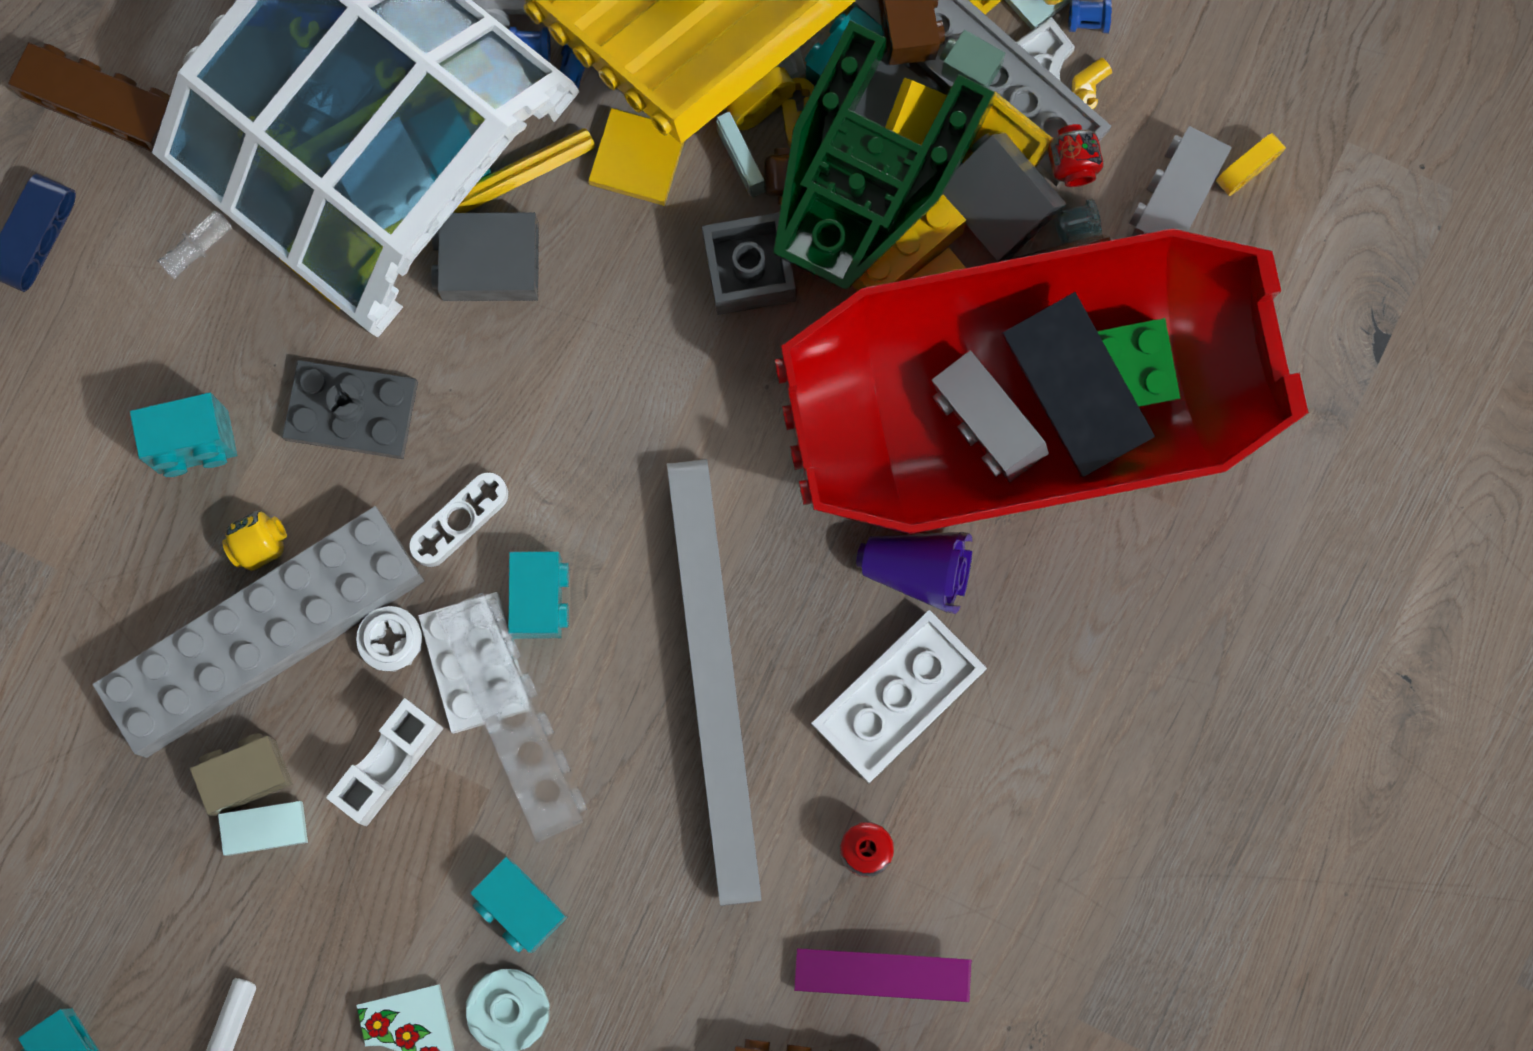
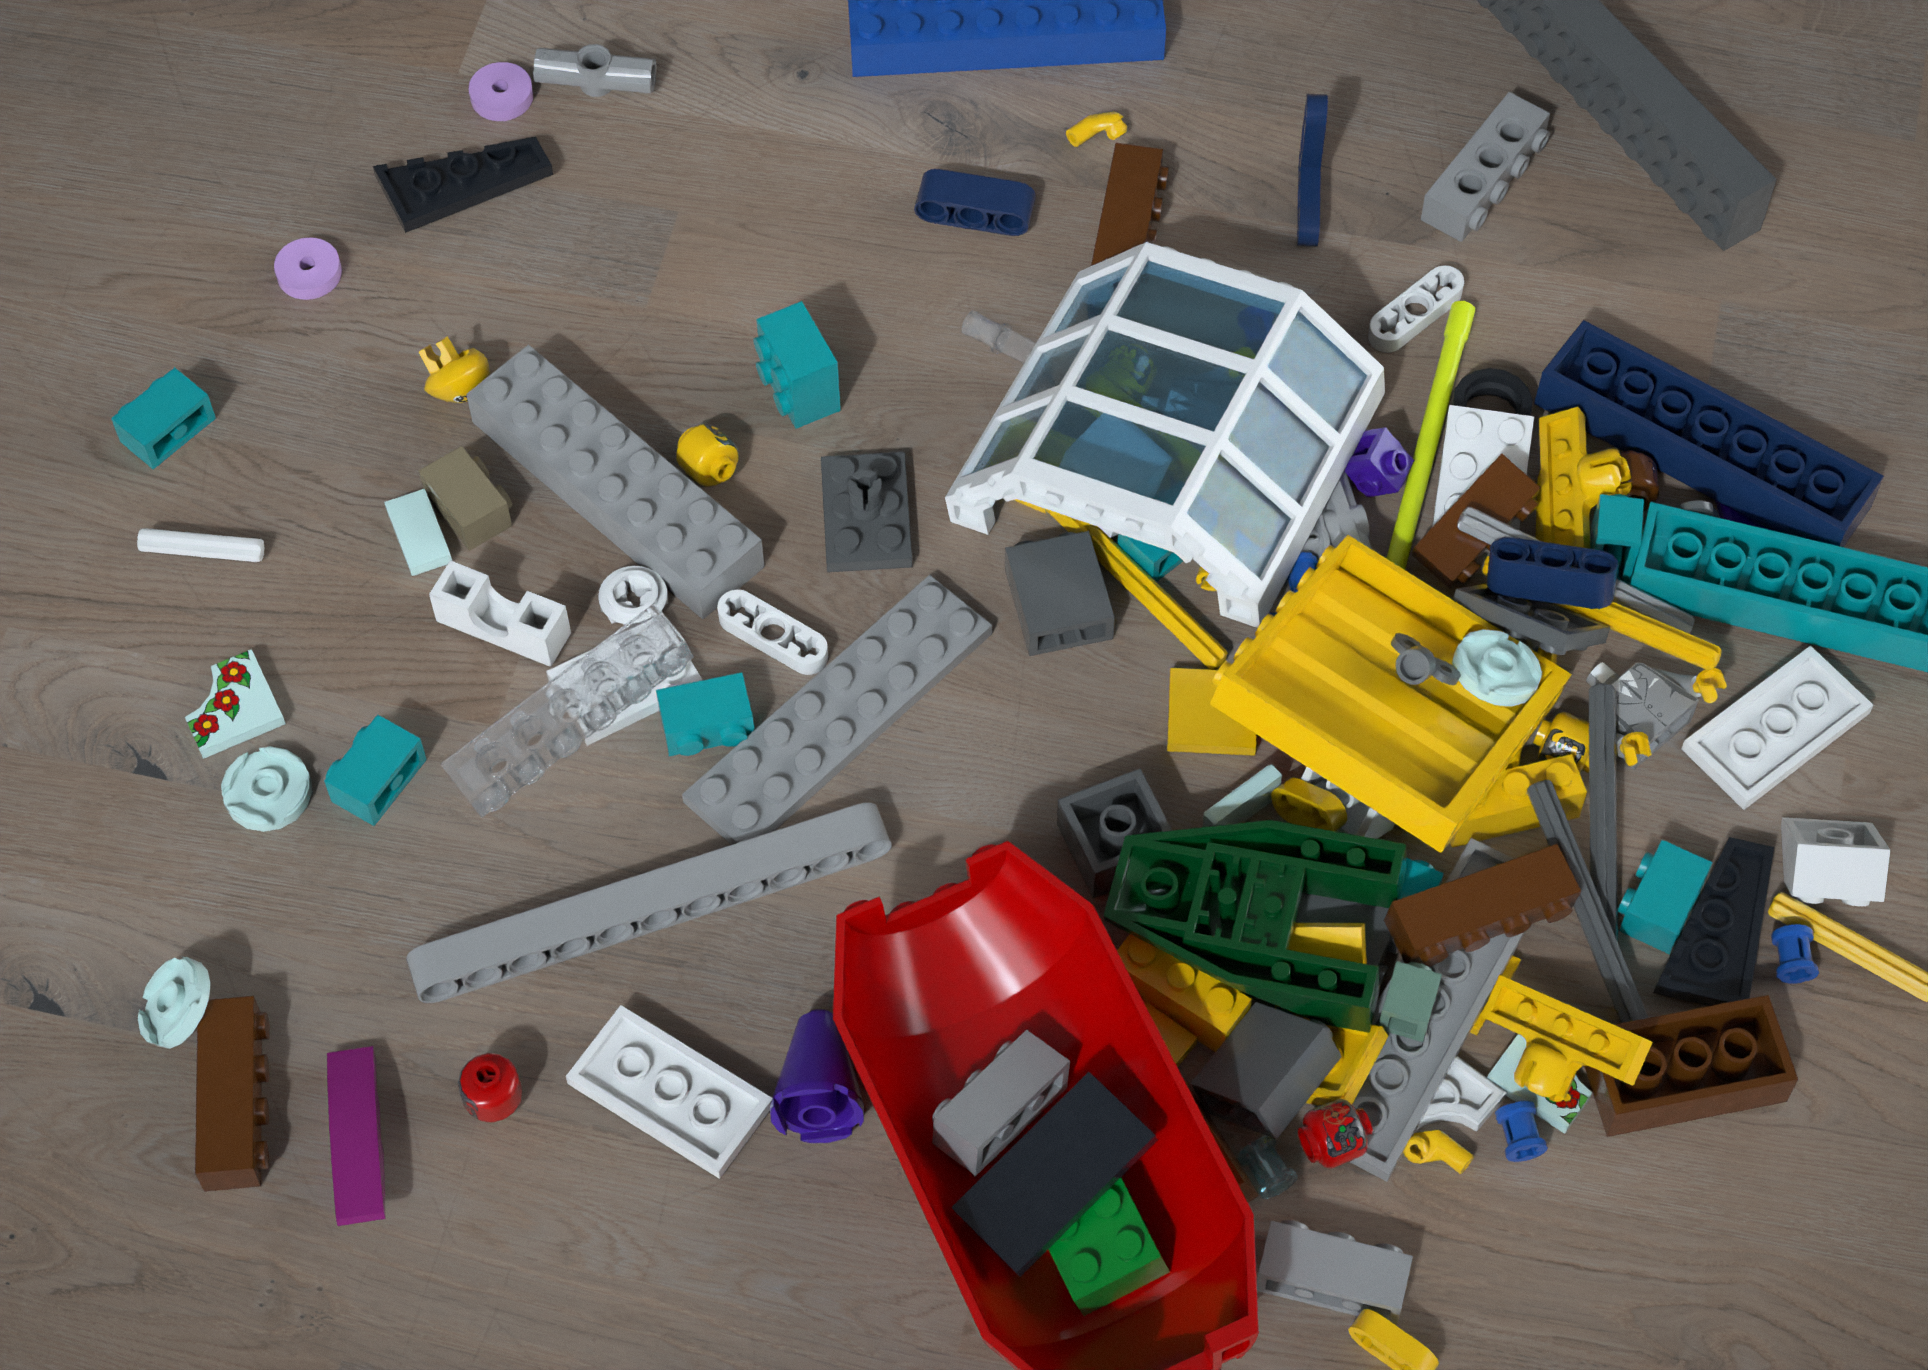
camera: 75 degrees right, 20 degrees down
(100, 762) = (453, 373): none -> yellow piece
(559, 479) = (837, 713): none -> light grey plate

